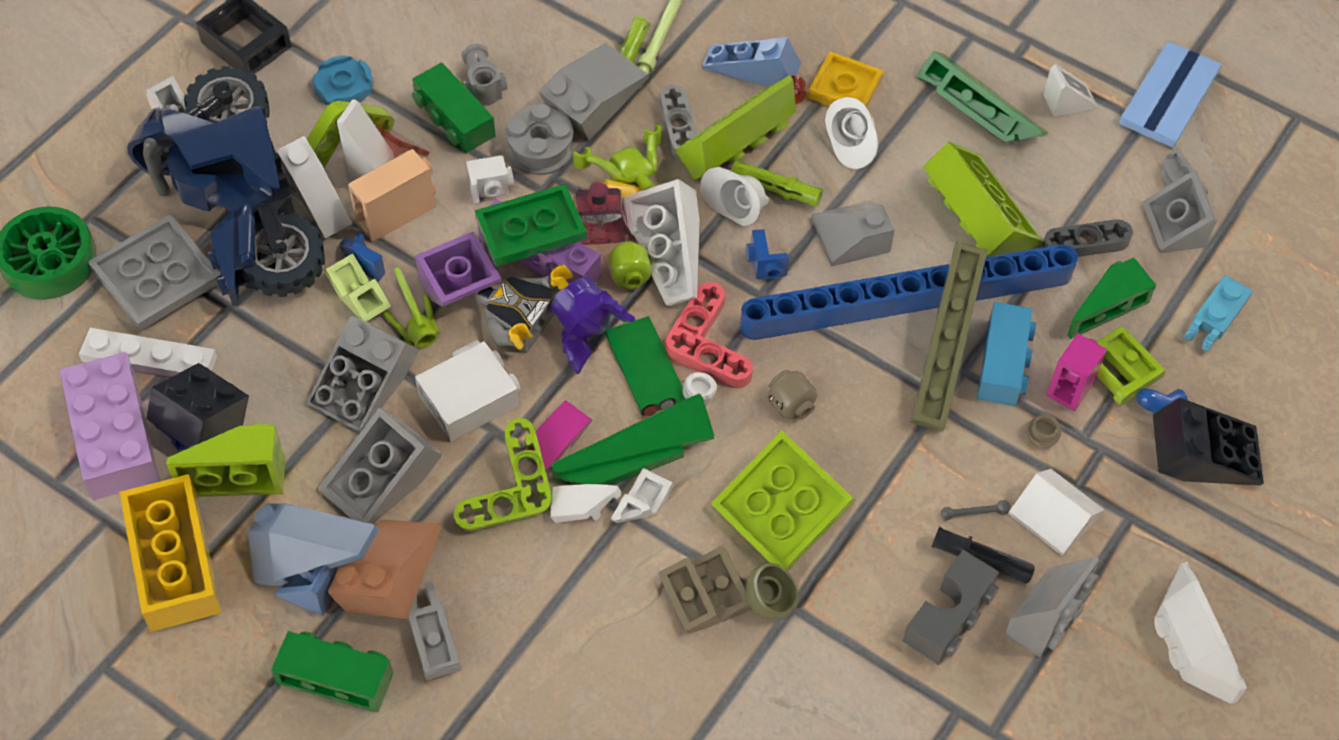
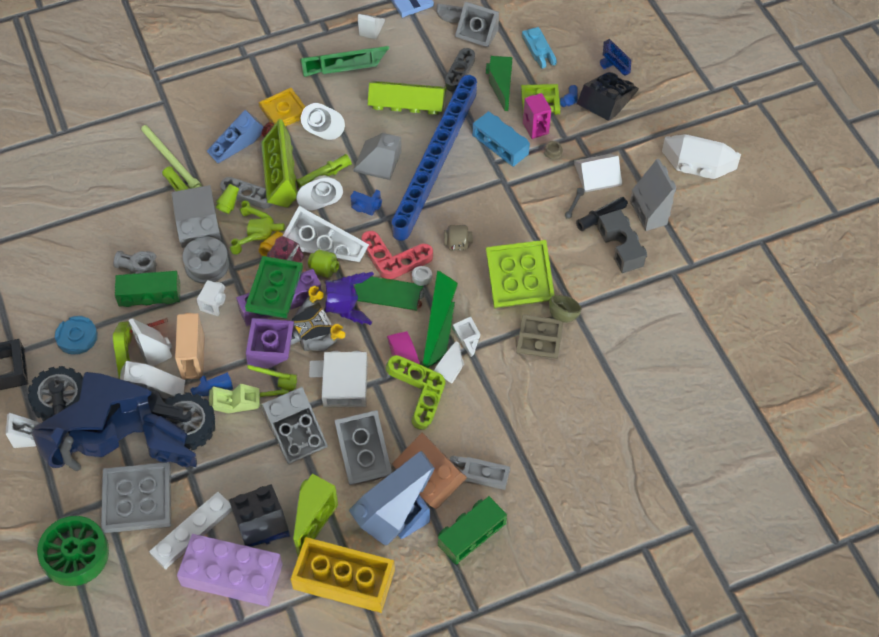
camera: 55 degrees left, 0 degrees up
(645, 107) = (227, 199): none -> lime cone
(949, 336) = (478, 152): olive plate -> none
(1282, 417) = (615, 57): none -> clear blue tile

